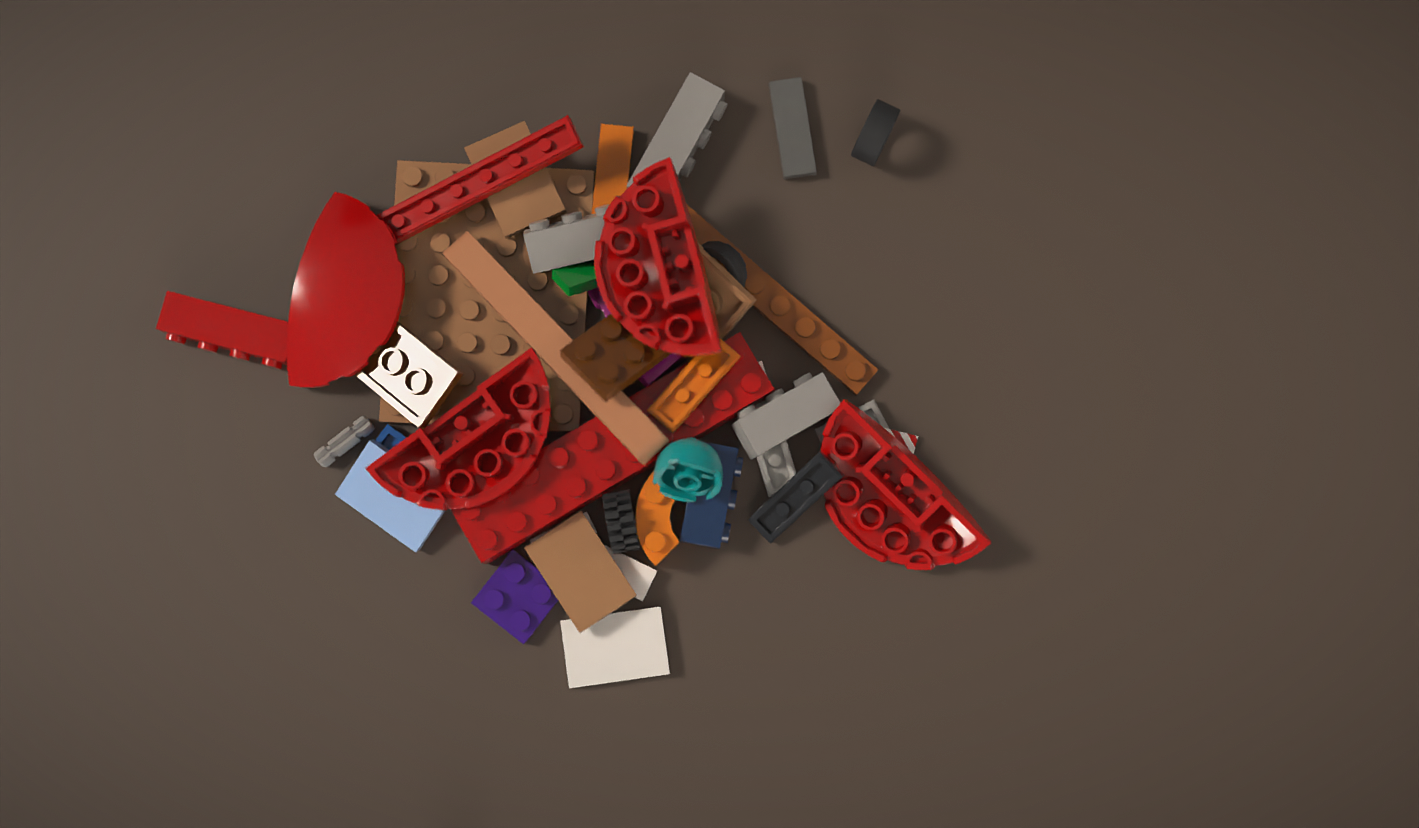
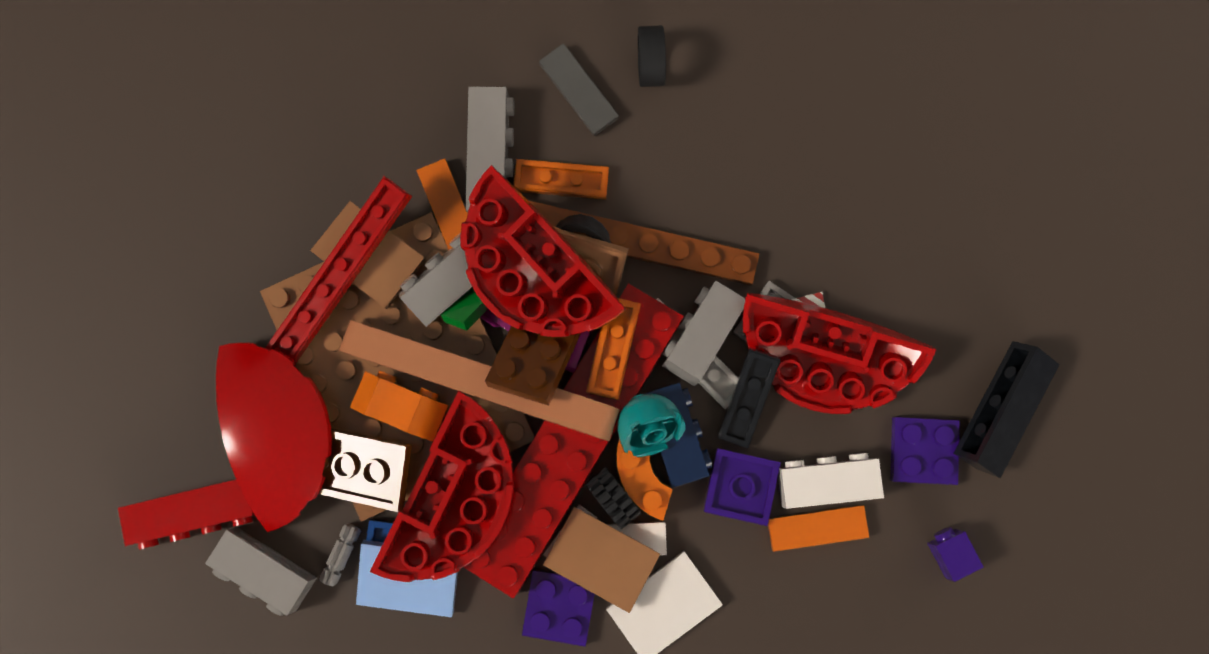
camera: 20 degrees left, 0 degrees up
(264, 418) = (260, 571): none -> light grey brick
(470, 333) = (399, 406): none -> orange brick
(731, 203) = (561, 179): none -> orange tile
(745, 575) = (741, 487): none -> dark purple plate
(795, 651) = (818, 528): none -> orange tile
(829, 613) = (830, 481): none -> white brick
(908, 741) = (954, 554): none -> dark purple brick
(933, 634) = (924, 451): none -> dark purple plate
(1029, 634) = (1006, 408): none -> black brick

